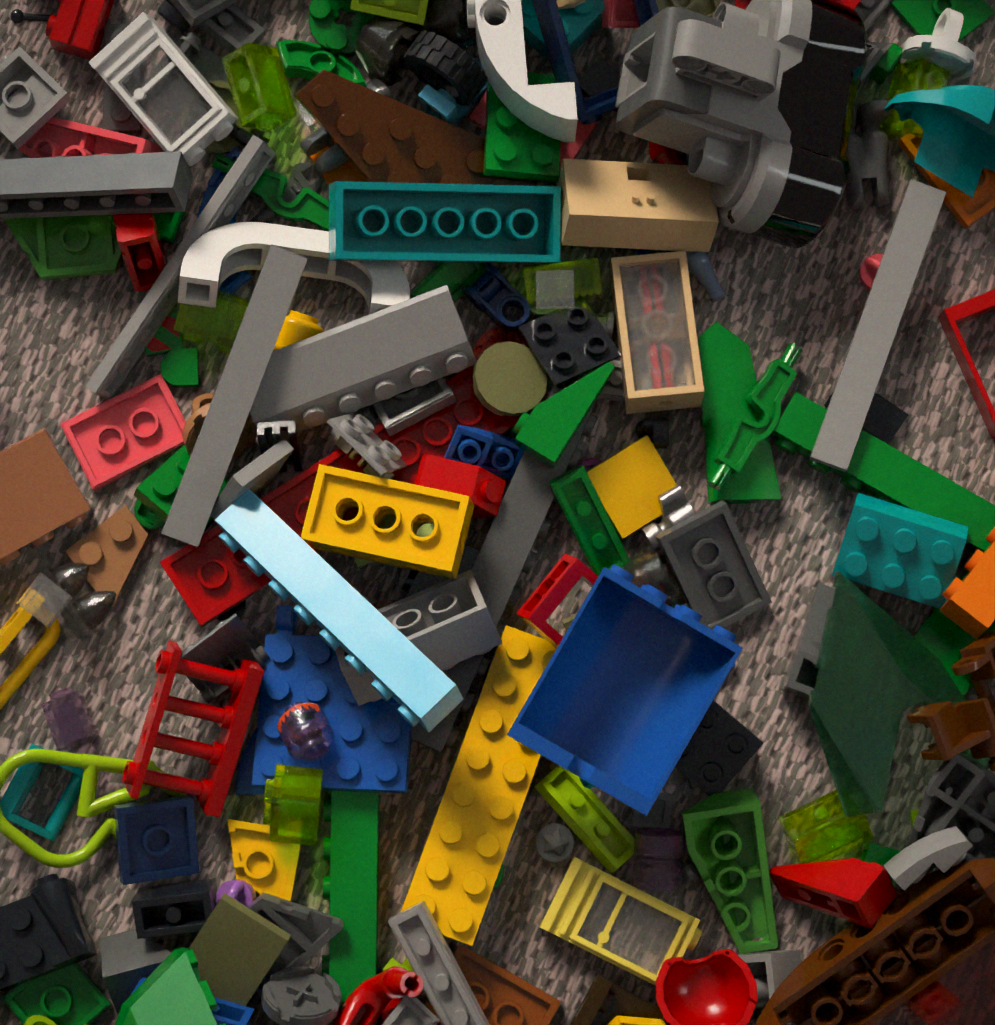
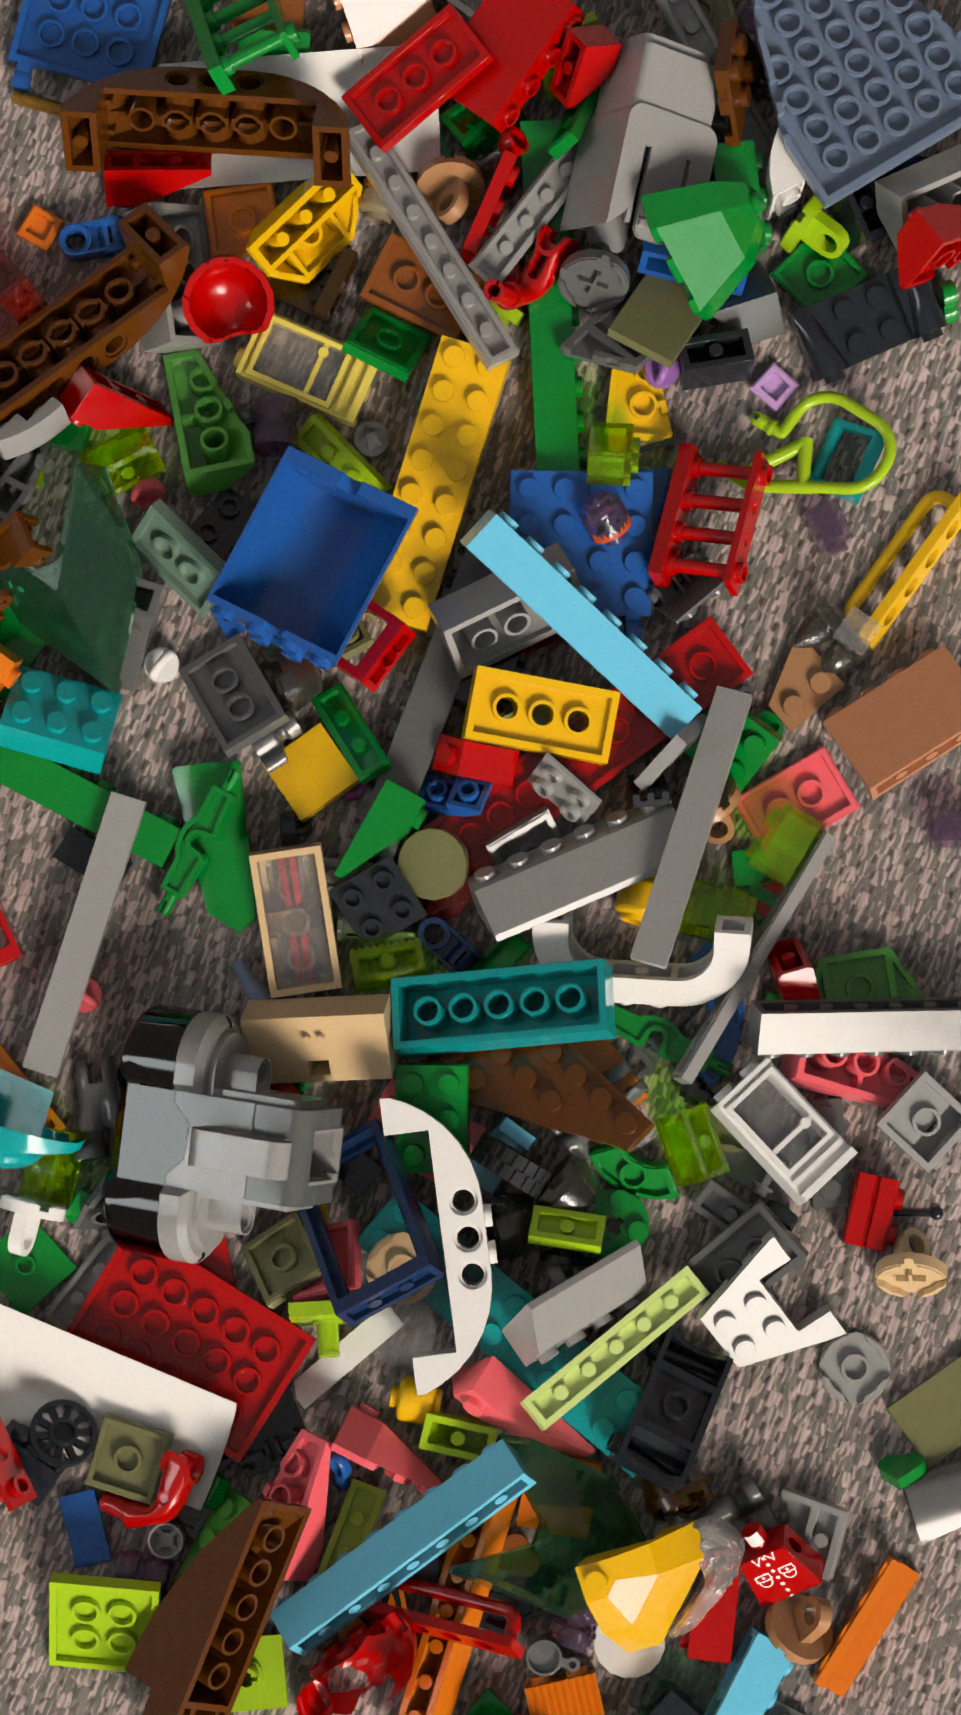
camera: 175 degrees left, 5 degrees up
(107, 880) = (774, 387): none -> lavender tile
(142, 384) = (783, 843): none -> clear neon green brick
(156, 839) = (738, 420): dark blue plate -> none
(226, 820) = (677, 438): none -> black hinge
(533, 944) = (387, 343): none -> green tile
(555, 289) = (394, 949): clear tile -> none
(766, 719) = (178, 555): none -> sand green plate
(788, 610) = (162, 665): none -> white tile
(796, 792) = (147, 493): none -> coral tile

